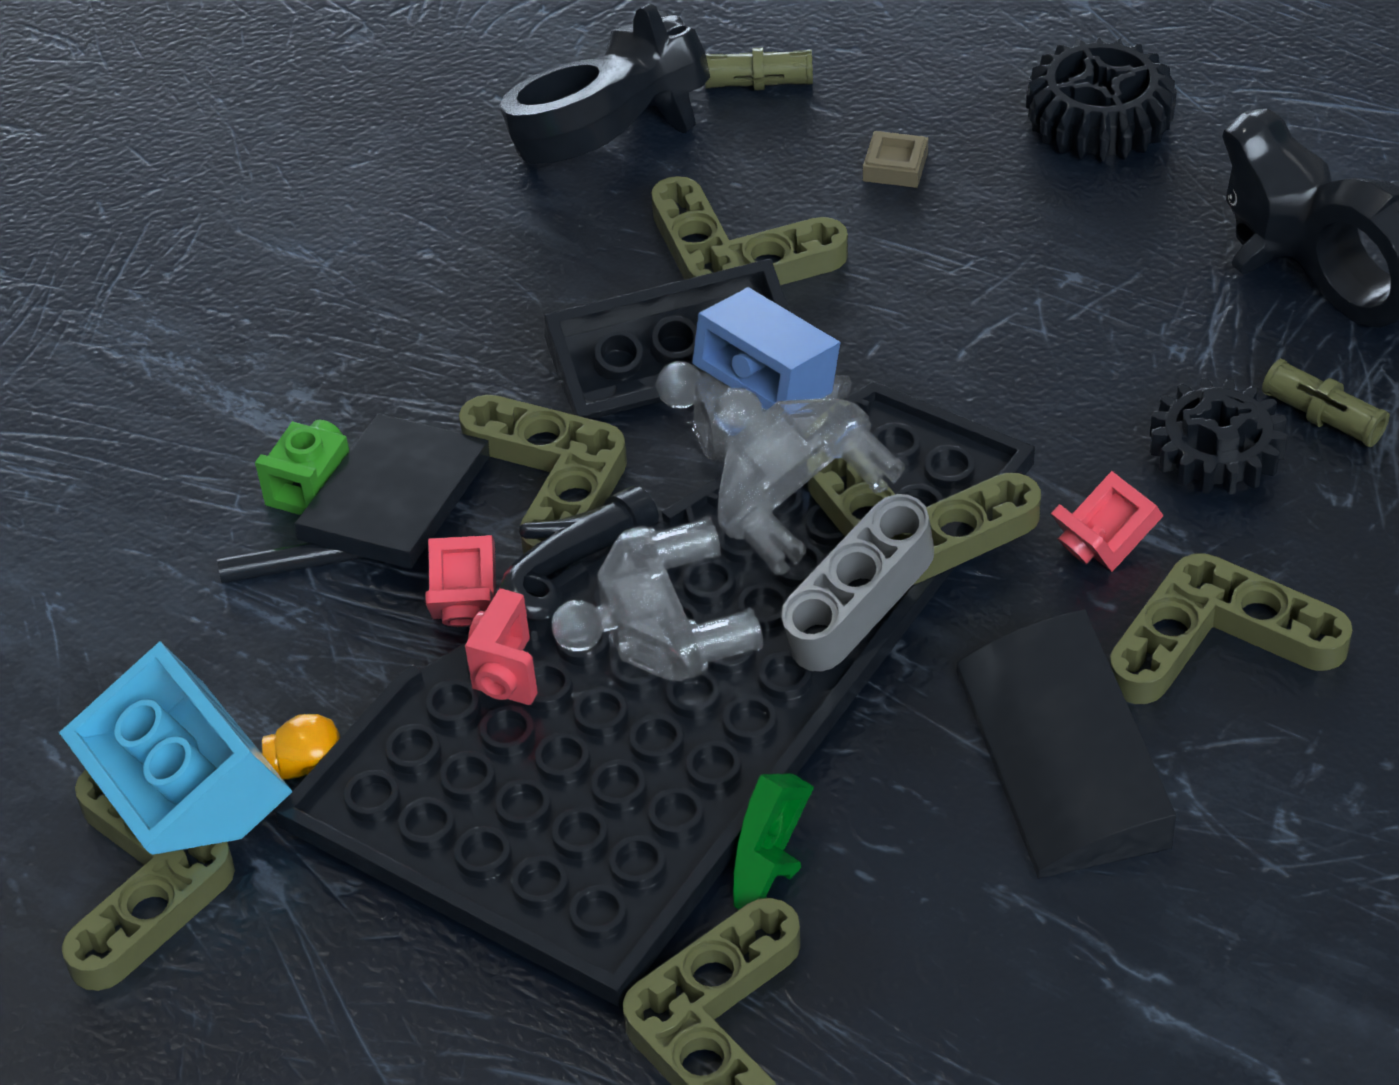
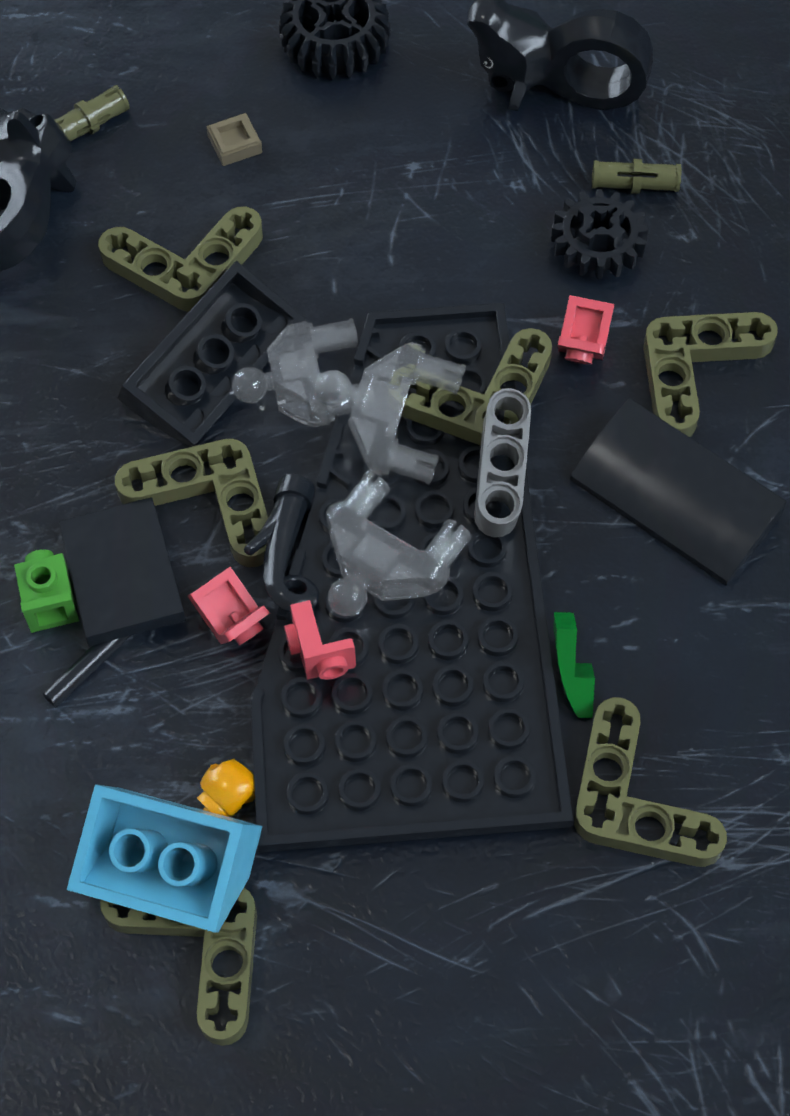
camera: 40 degrees left, 15 degrees up
(765, 349) = (307, 334): medium blue brick -> none

